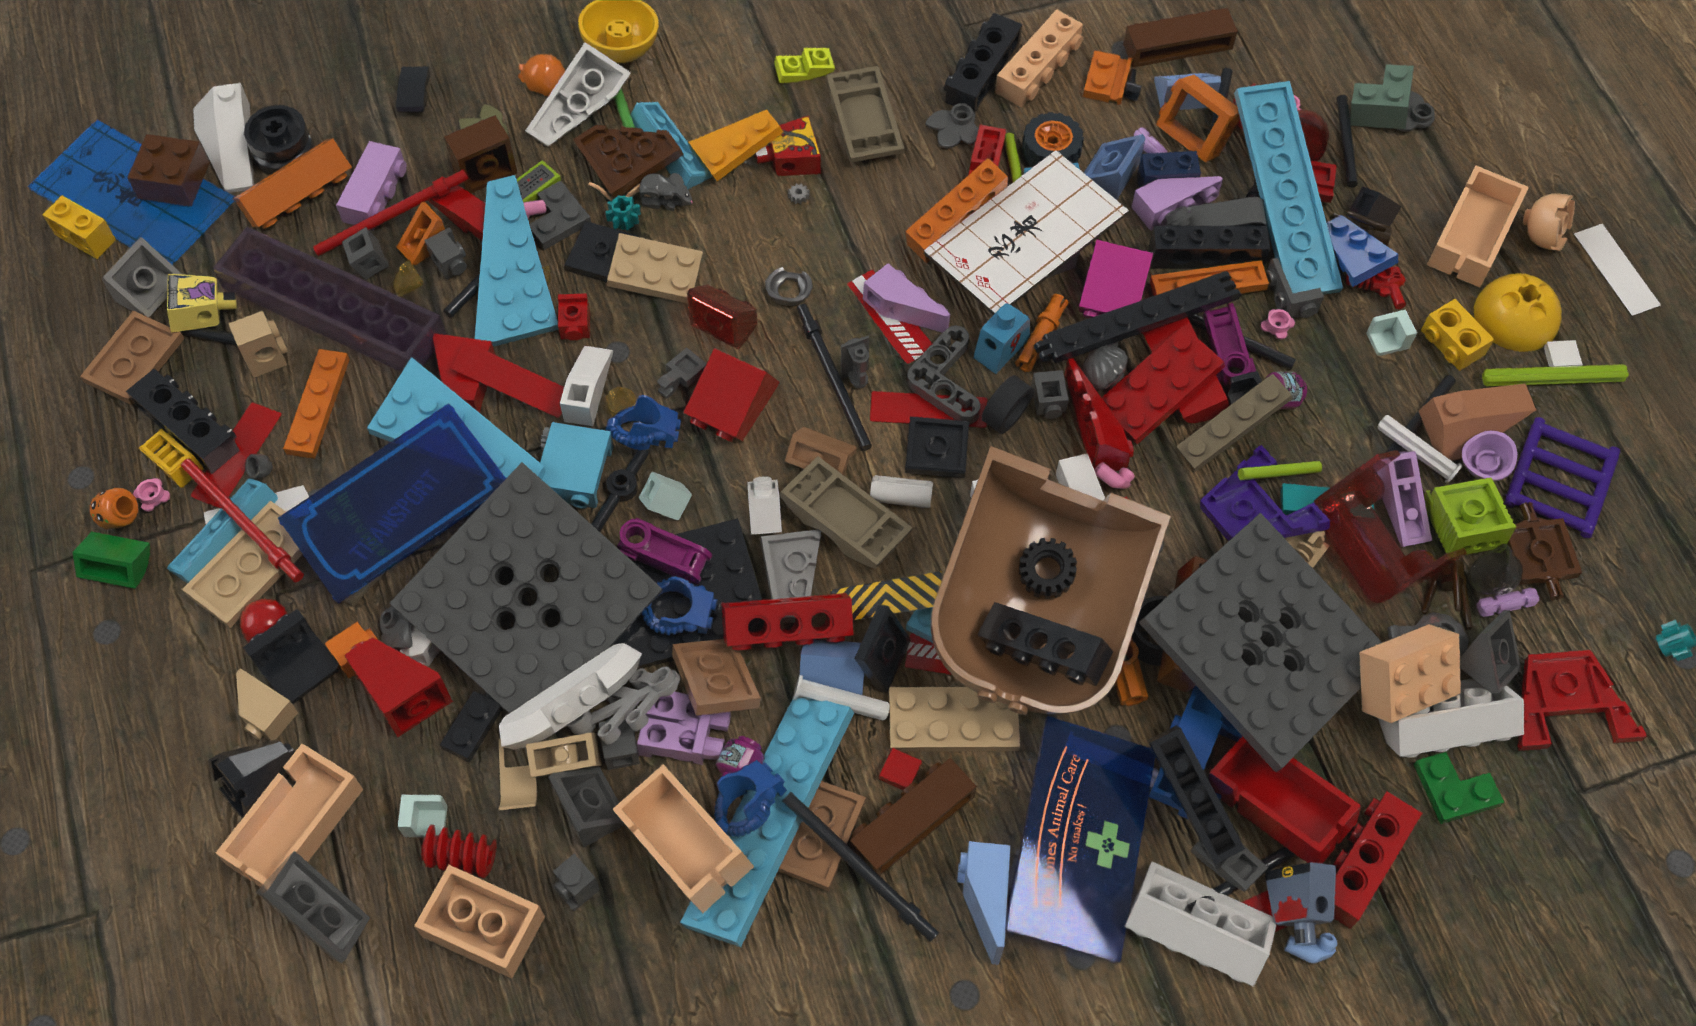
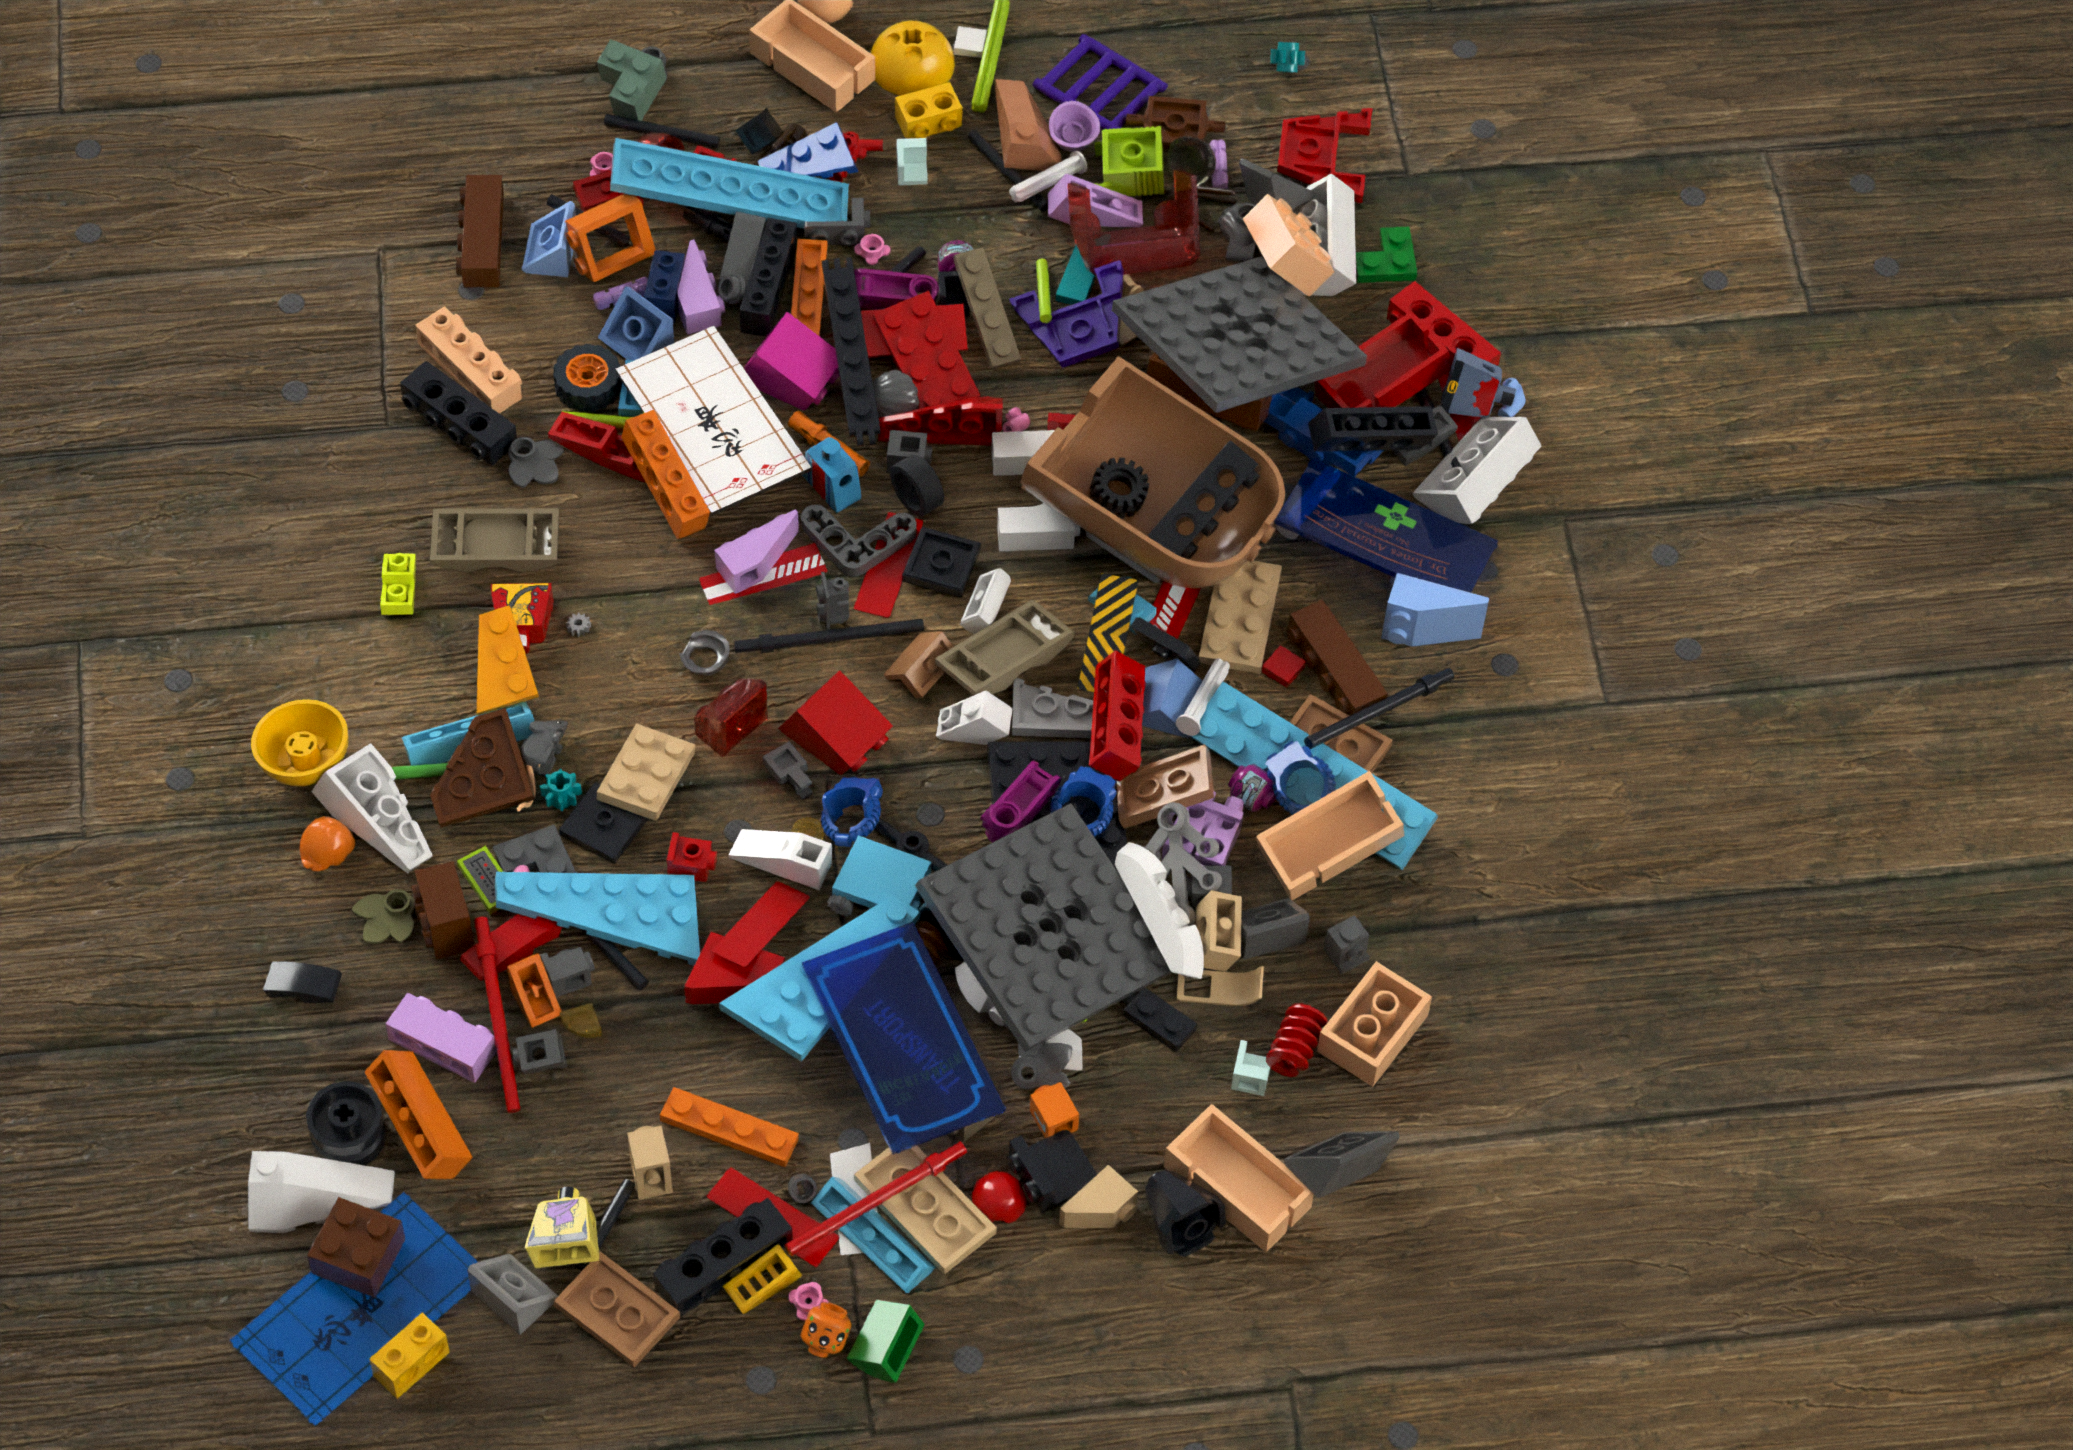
camera: 80 degrees left, 5 degrees down
(328, 300) = (604, 1090): brick -> none
(397, 684) = (1112, 1067): red slope -> none
(665, 496) = (939, 807): light aqua panel -> none
(1107, 77) = (509, 310): orange plate -> none
(1132, 89) = (534, 294): black hand -> none

